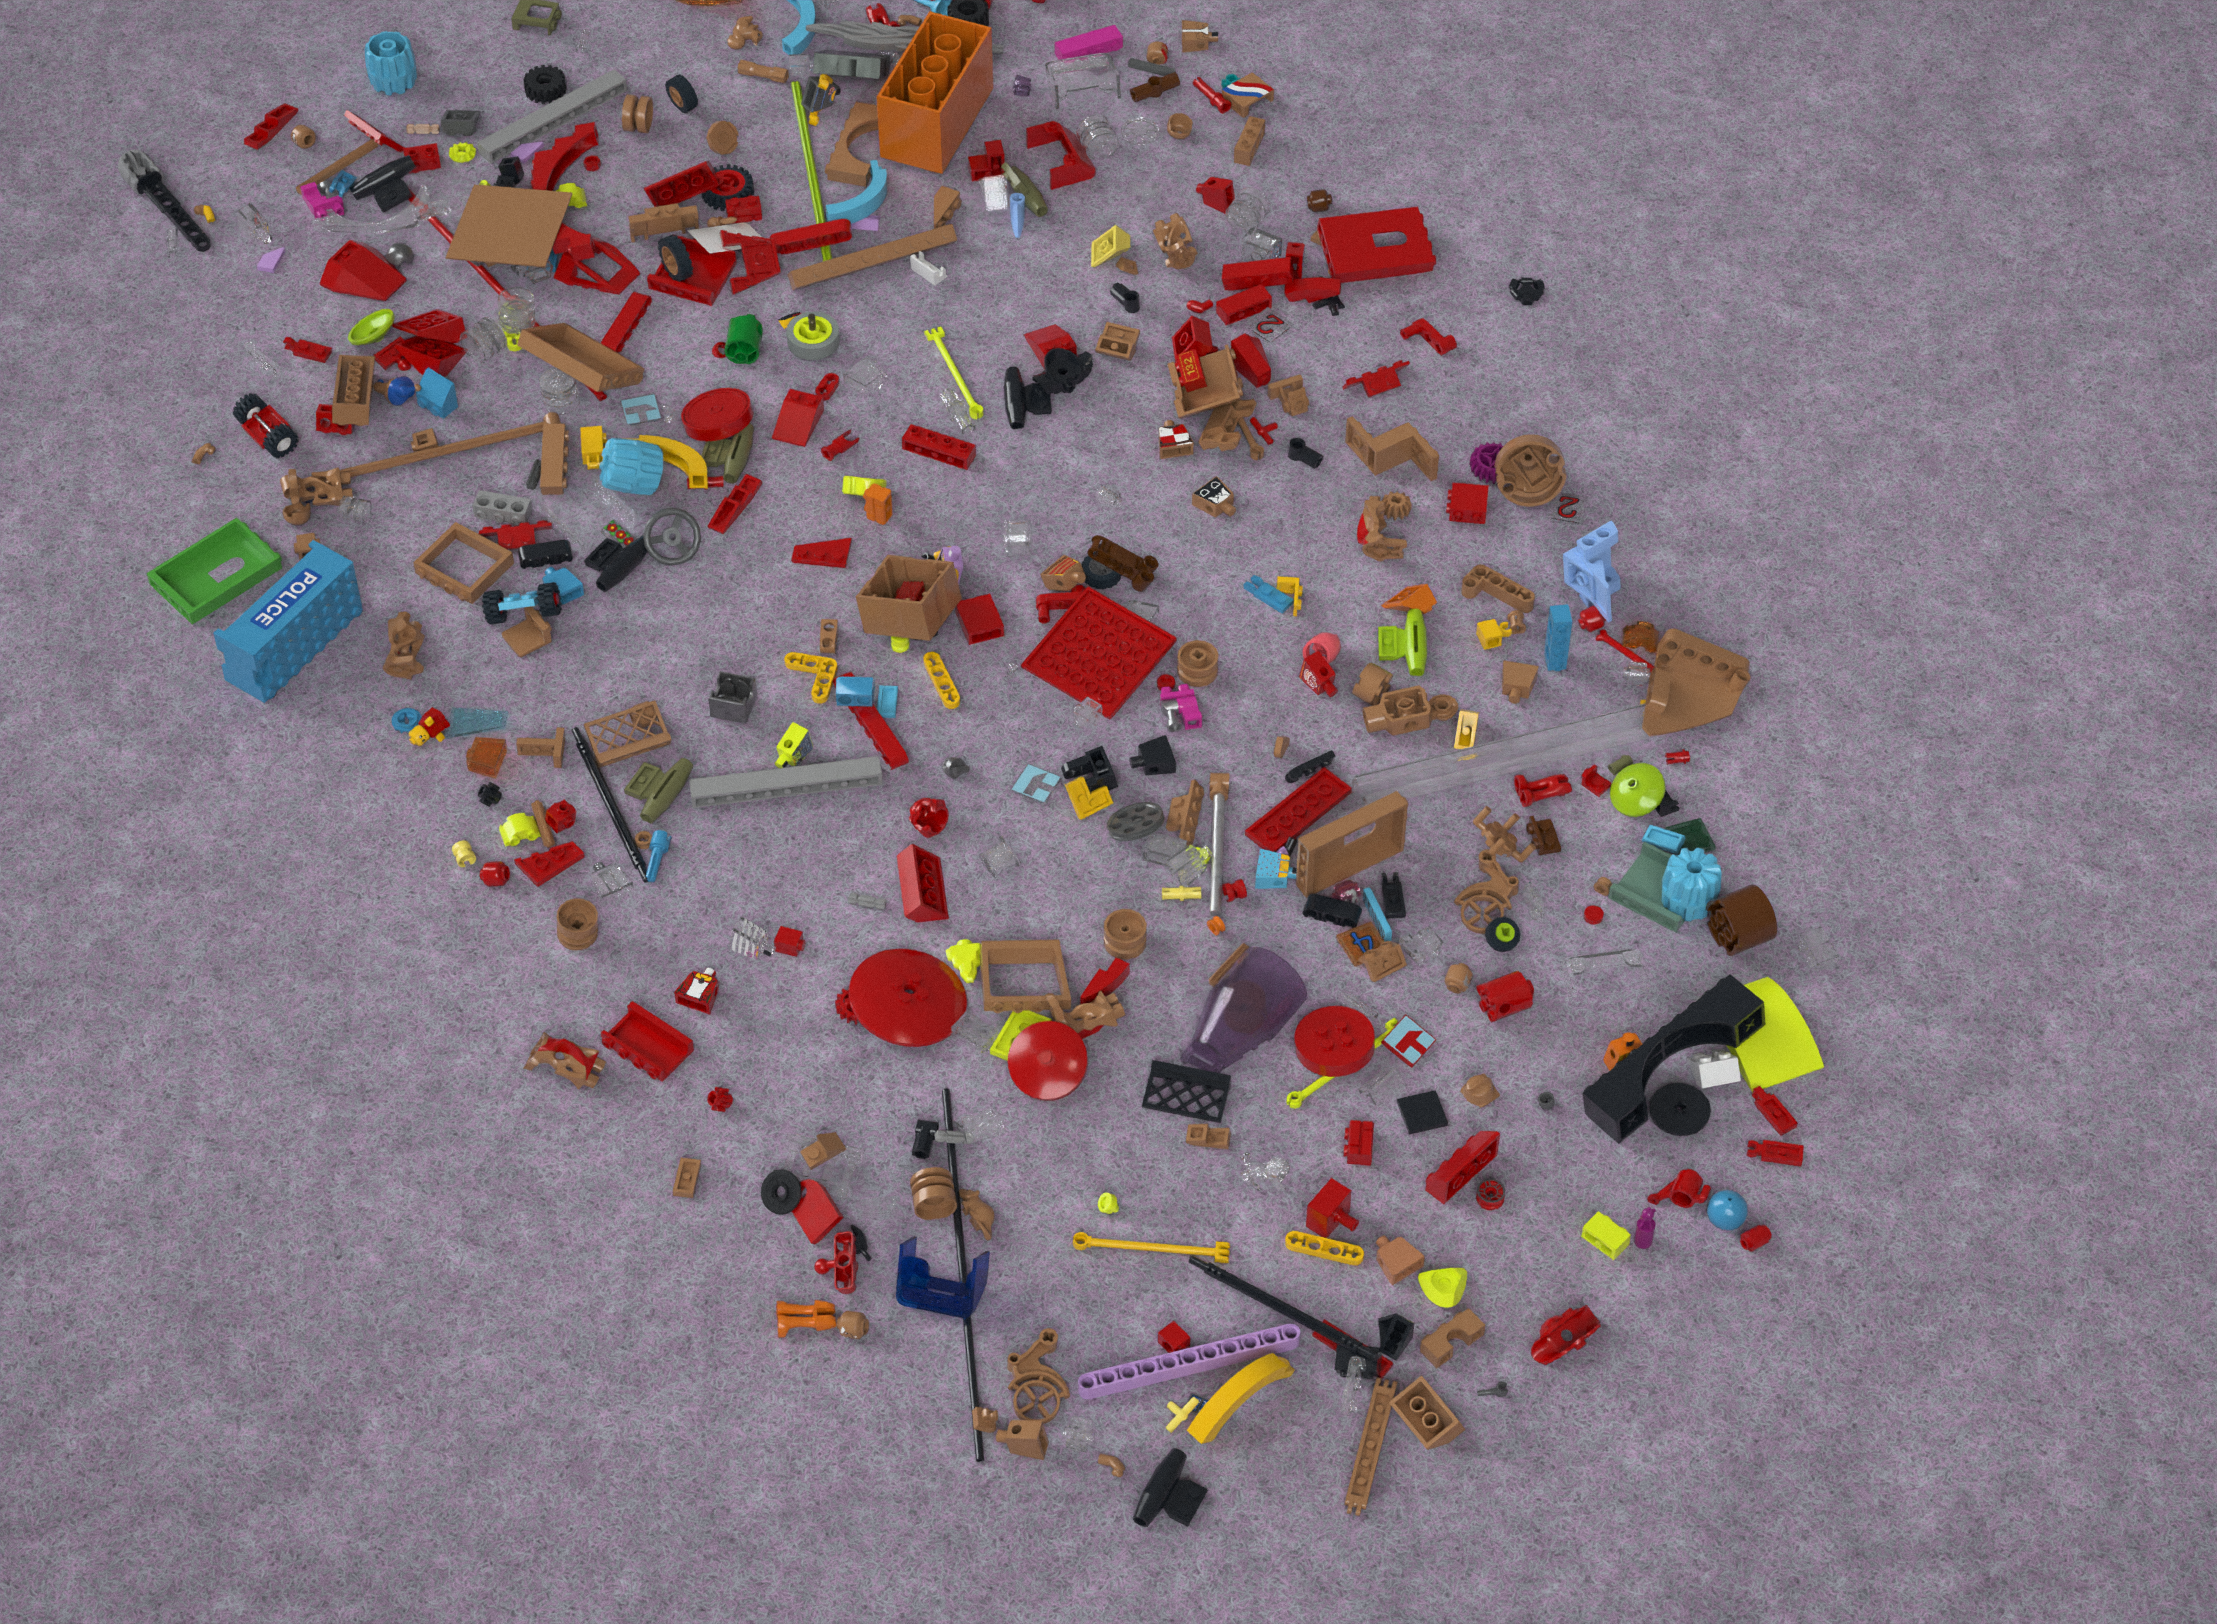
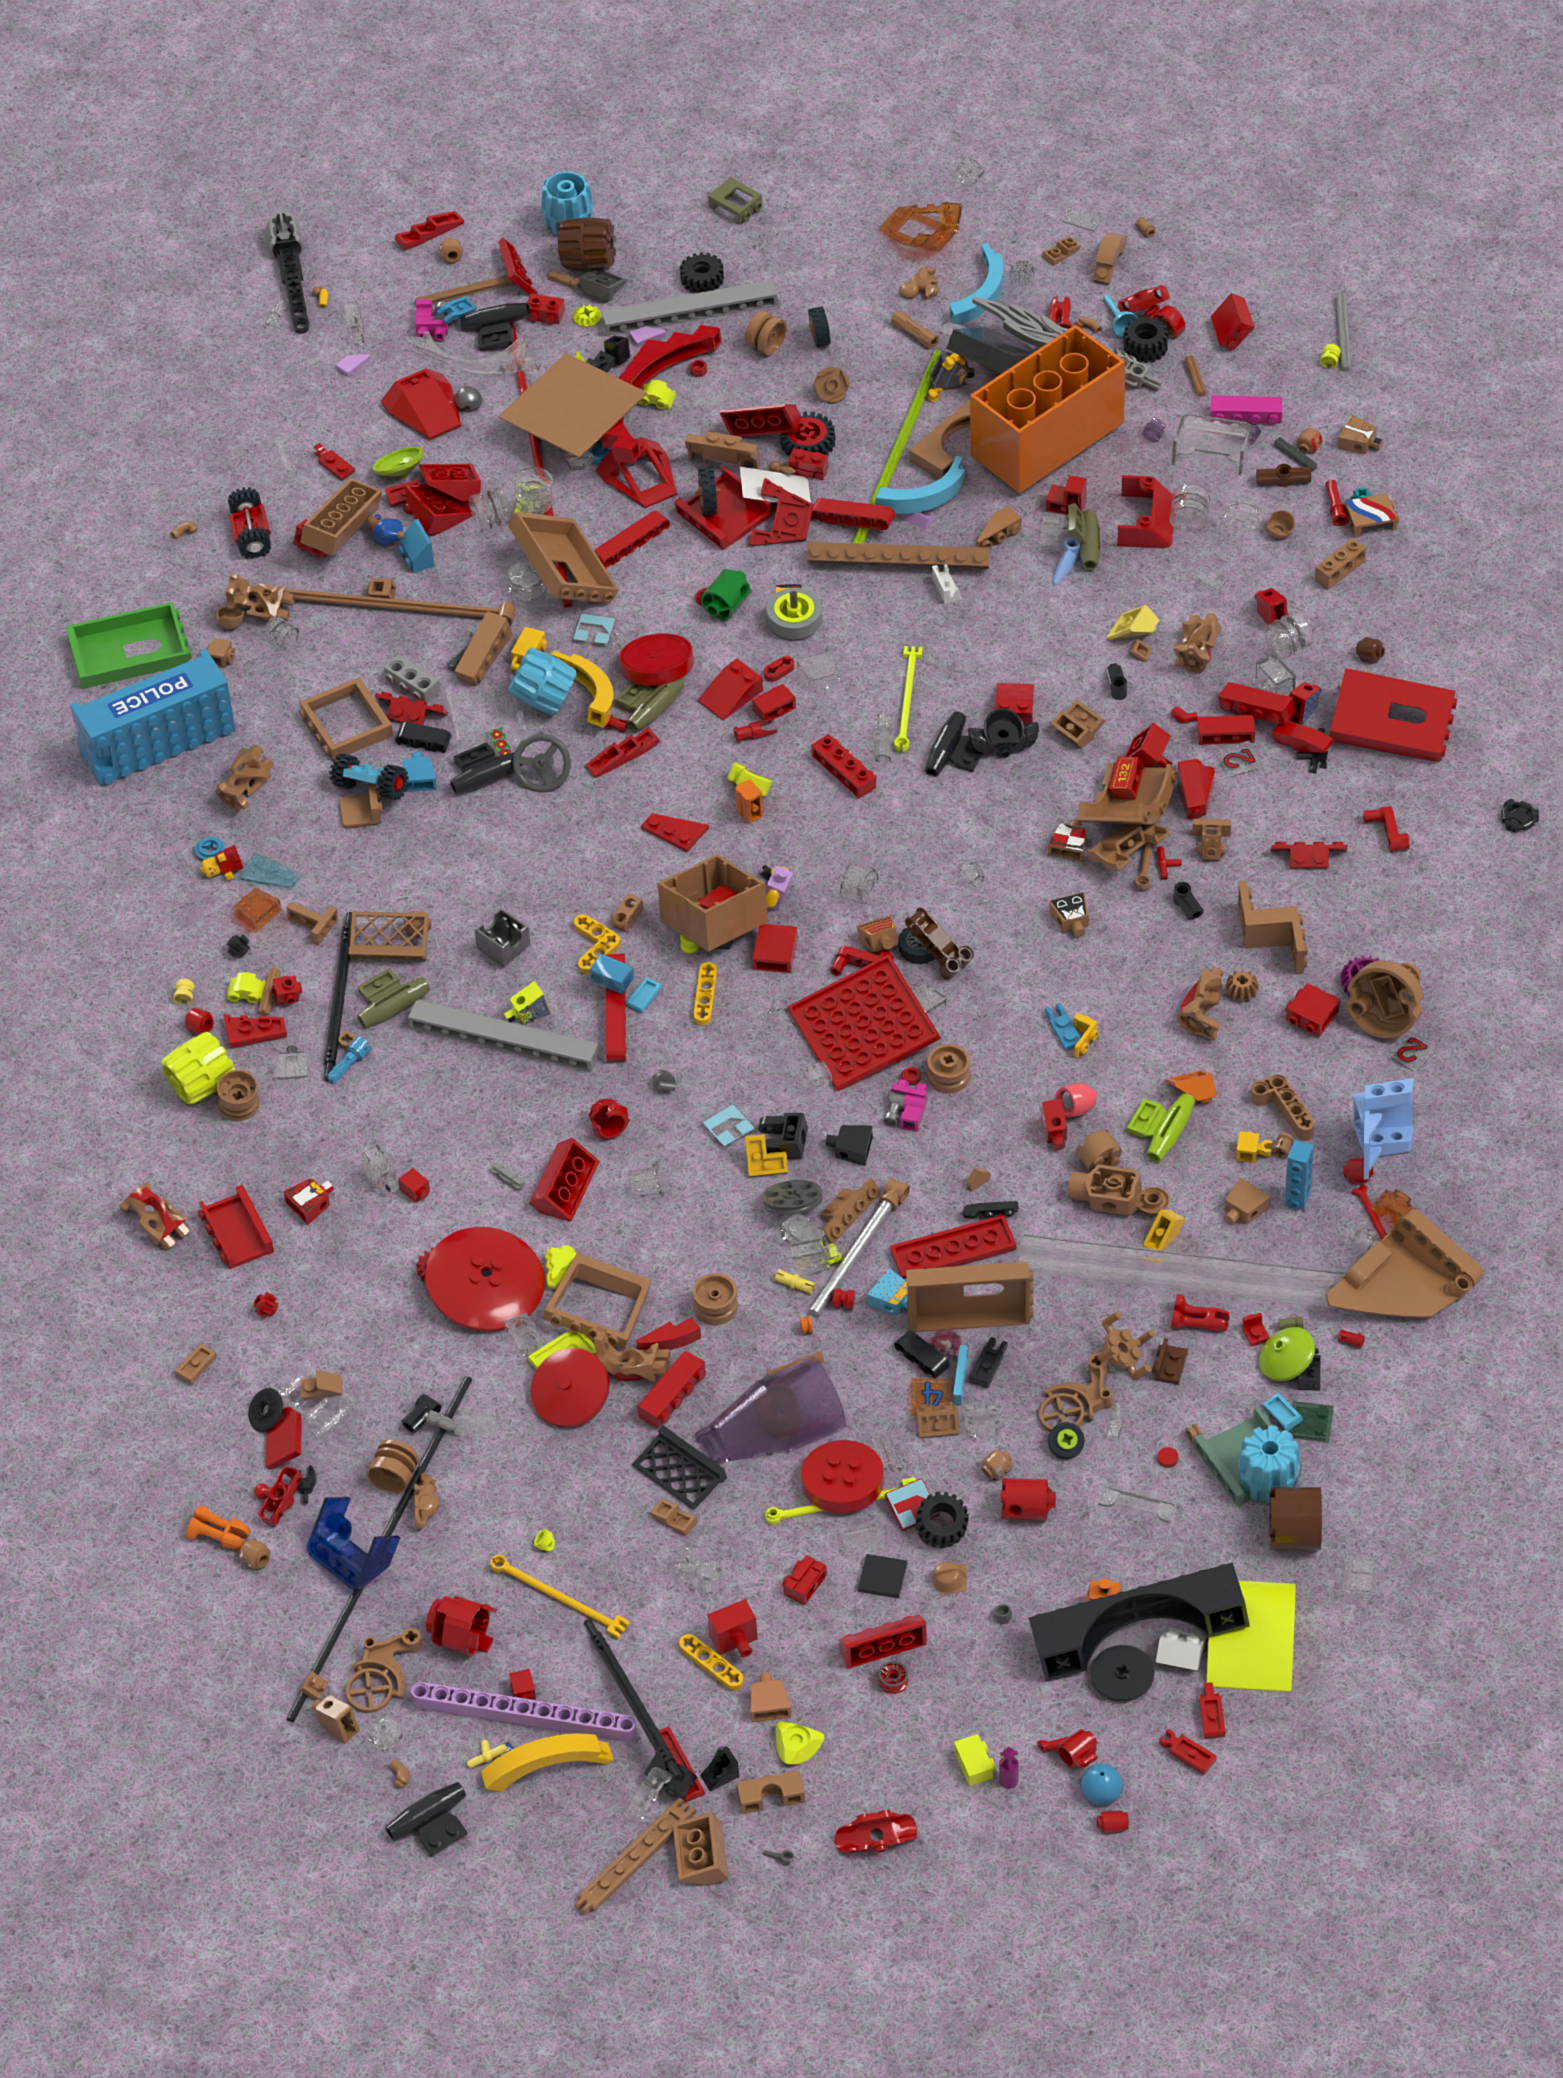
camera: 30 degrees right, 0 degrees up
(430, 90) = (586, 243): none -> reddish brown wheel
(526, 913) = (196, 1067): none -> neon yellow wheel
(843, 416) = (774, 703): none -> red brick
(1026, 32) = (1195, 375): none -> medium nougat axle
(1085, 1308) = (460, 1625): none -> red piece
(1137, 1027) = (671, 1389): none -> red brick
(1456, 1032) = (945, 1504): none -> black tyre

